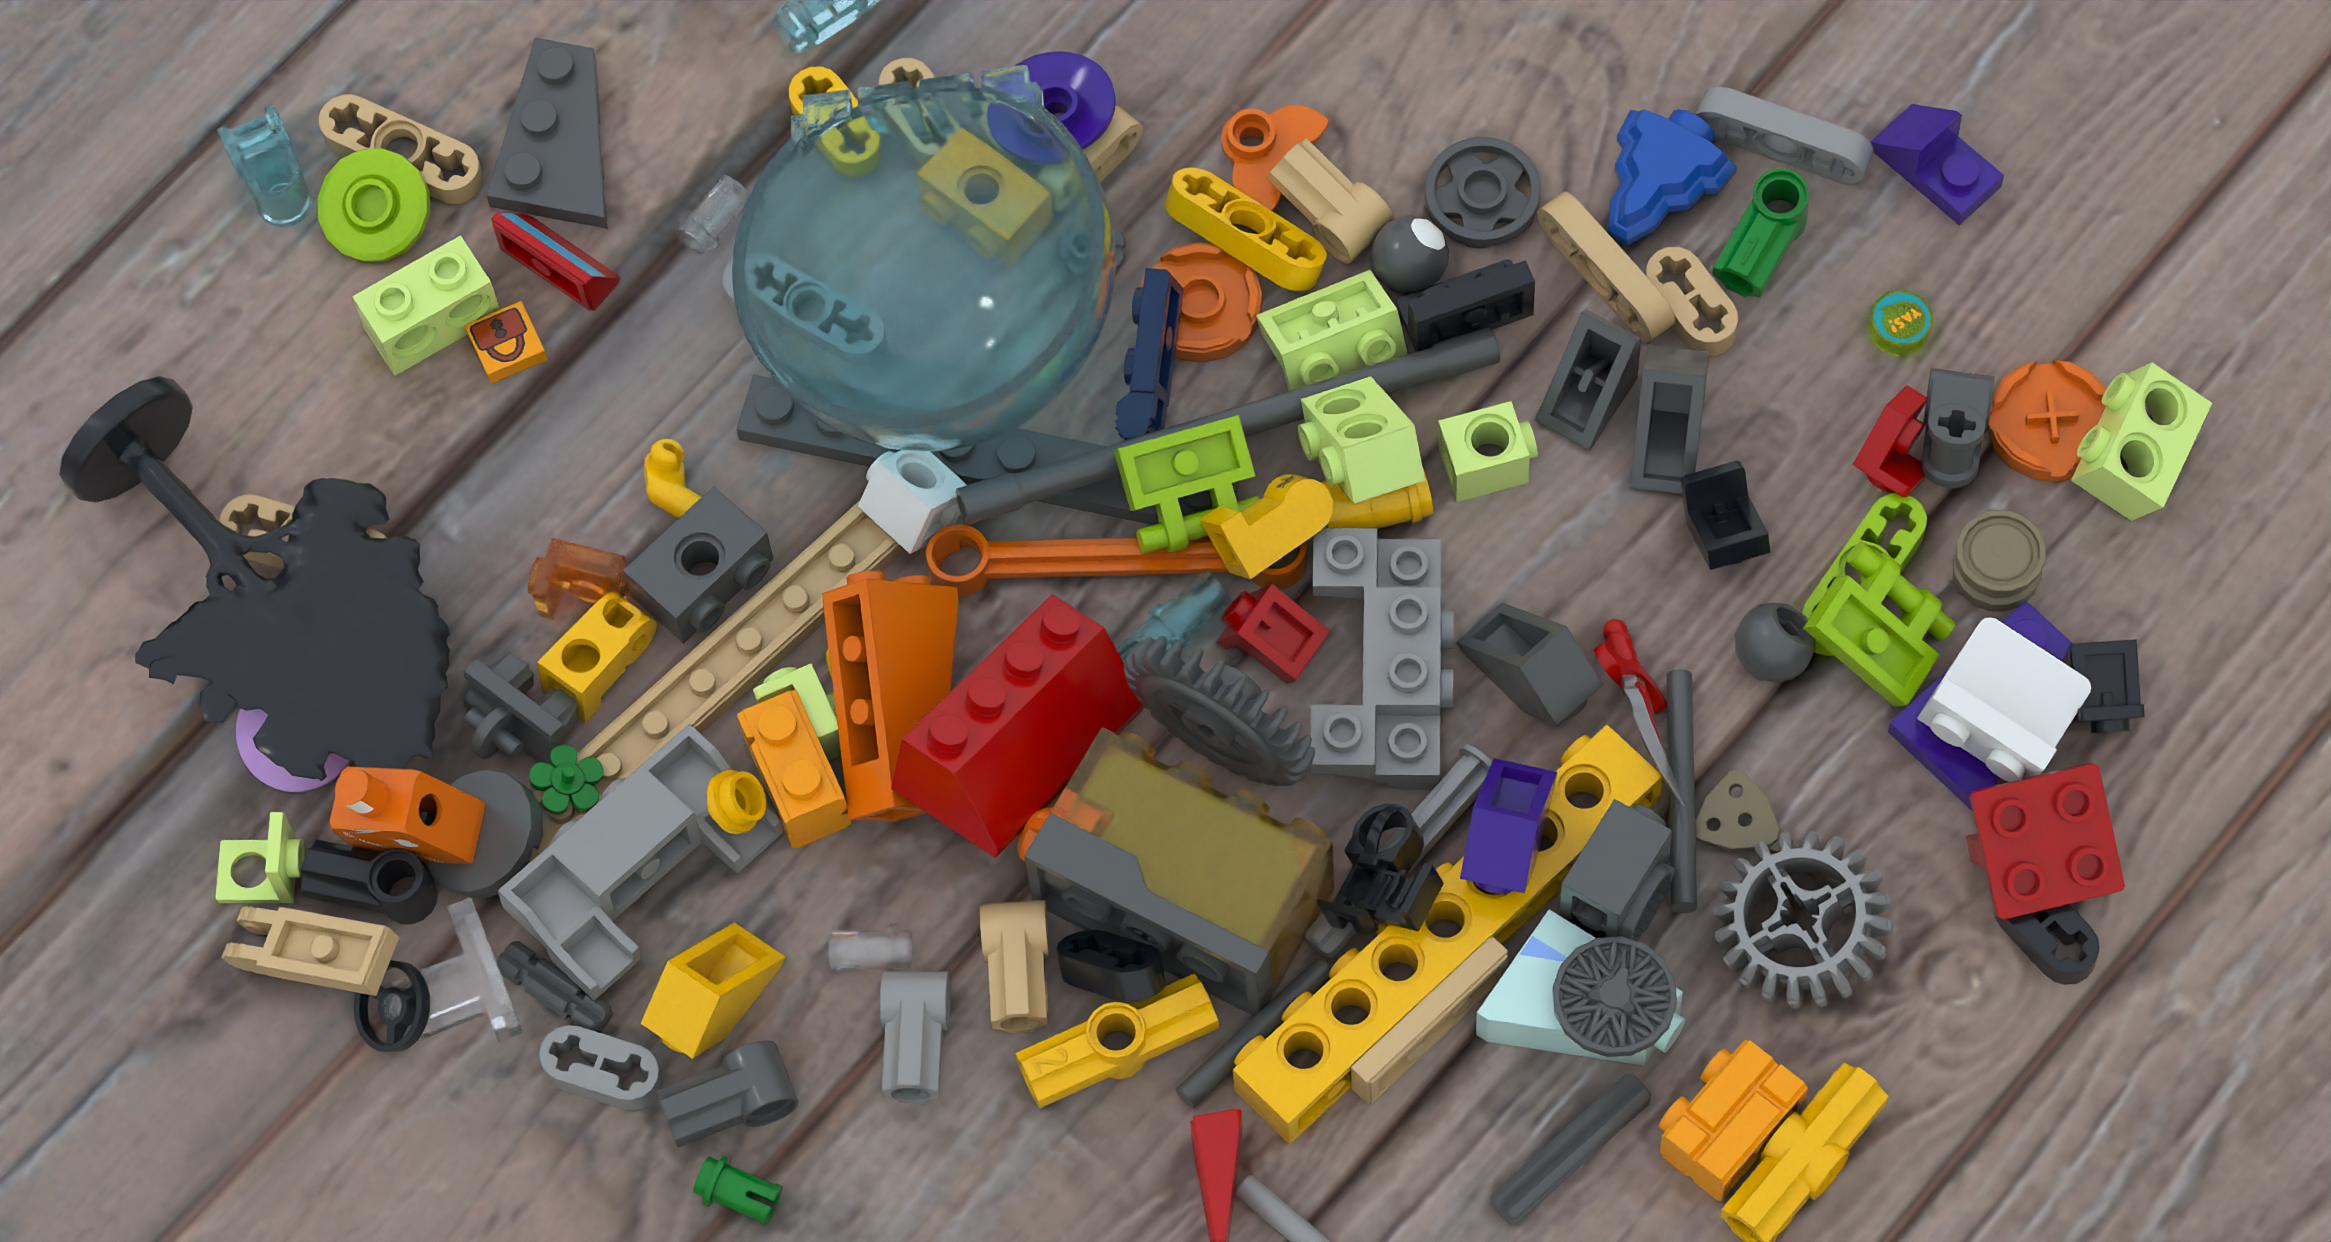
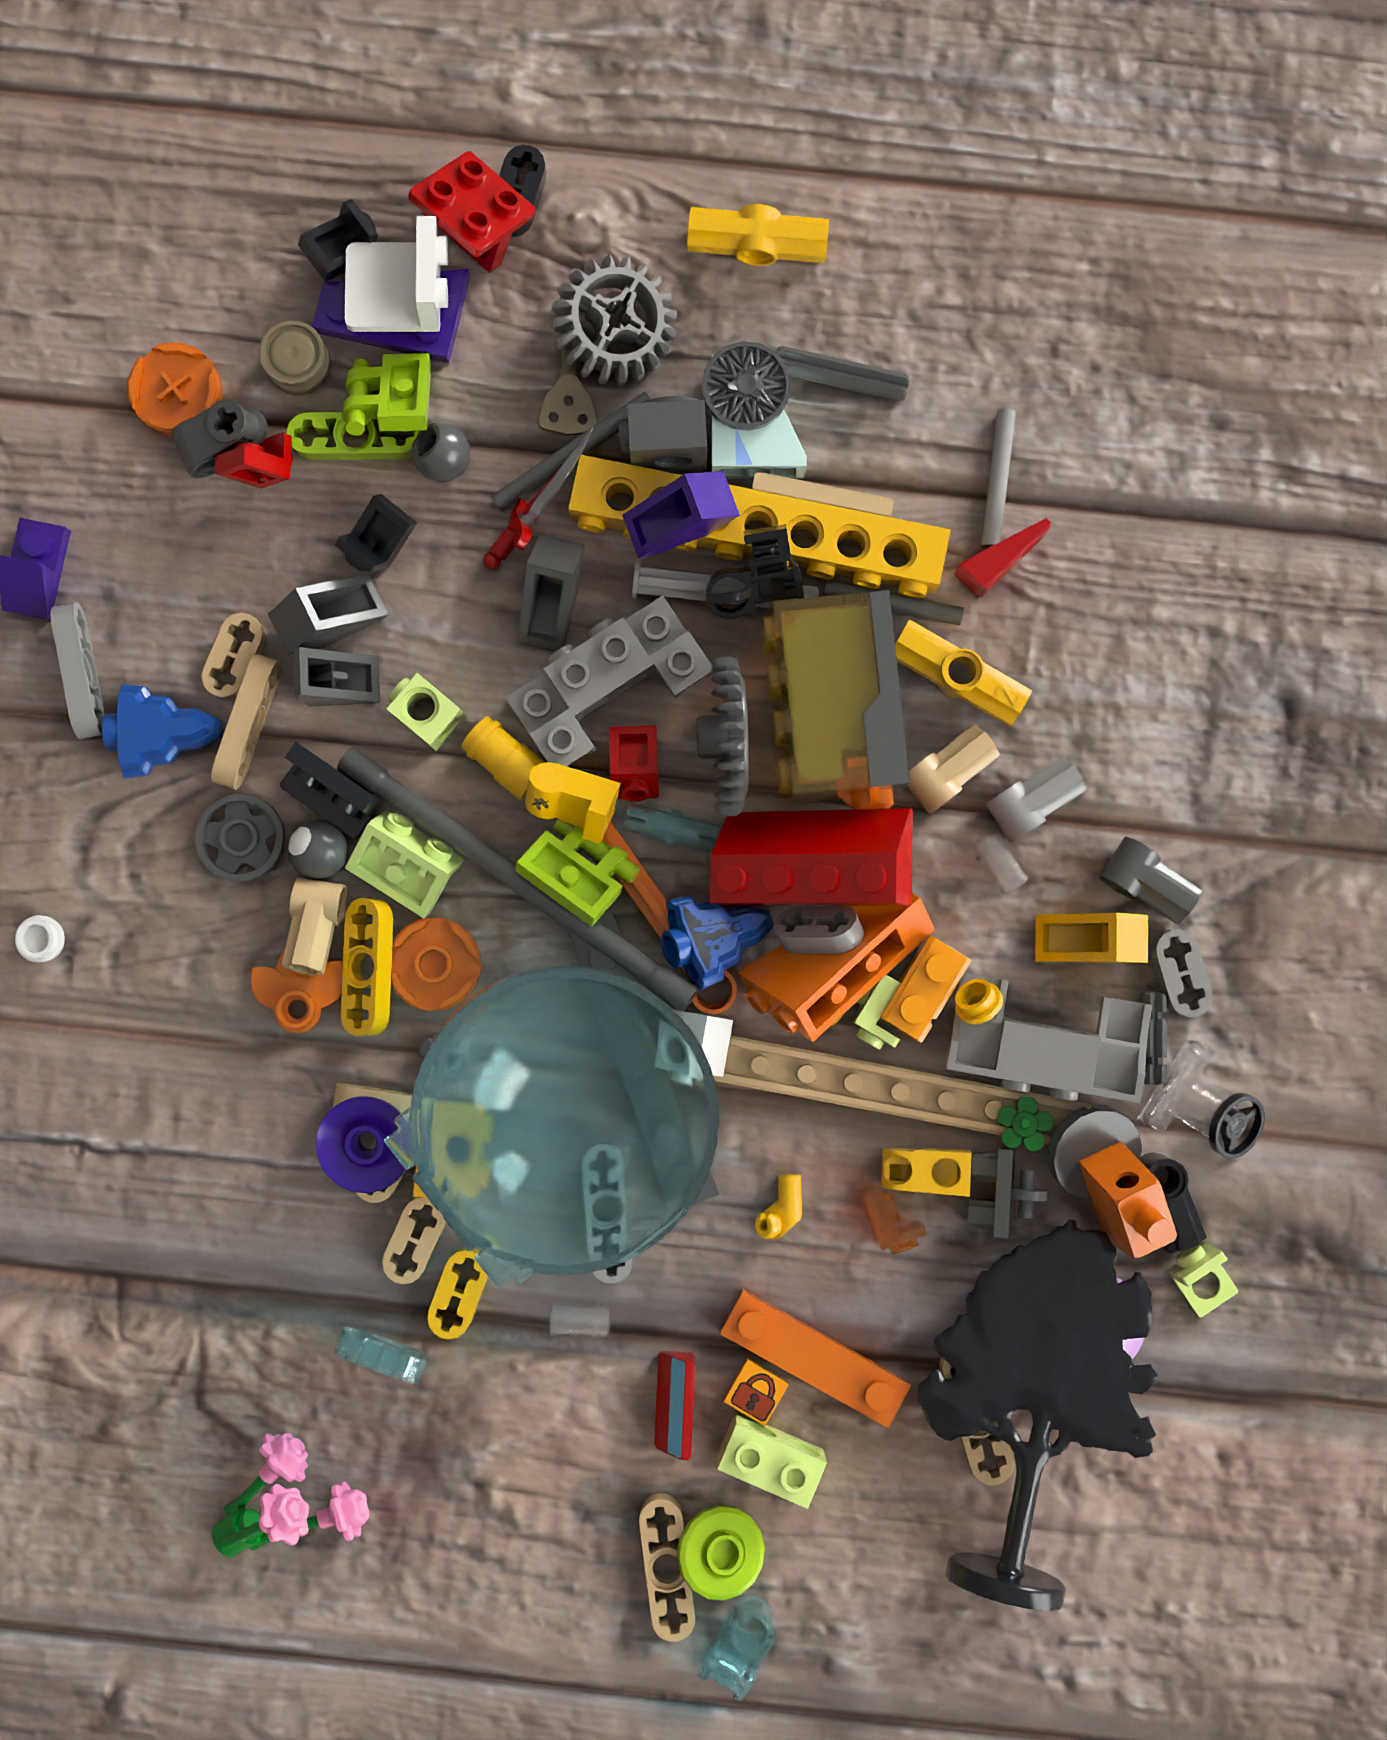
camera: 130 degrees left, 20 degrees up
(314, 949) = (1241, 1196): tan hinge -> none
(493, 422) = (815, 1358): none -> orange plate
(553, 140) = (591, 1471): dark grey wing -> none
(706, 532) = (851, 1165): dark grey brick -> none
(733, 1188) = (1200, 835): green pin -> none
(932, 674) = (819, 929): none -> light grey beam
(1014, 574) = (710, 937): none -> blue rock
(1111, 965) = (927, 705): black beam -> none
(1151, 362) = (507, 958): dark blue hinge -> none
(1361, 440) = (477, 780): yellowish green brick -> none
(1730, 1118) = (764, 289): light orange brick -> none
(1763, 235) = (162, 636): green piece -> none
(1900, 322) = (165, 521): clear neon green tile -> none
(2150, 448) = (159, 314): yellowish green brick -> none

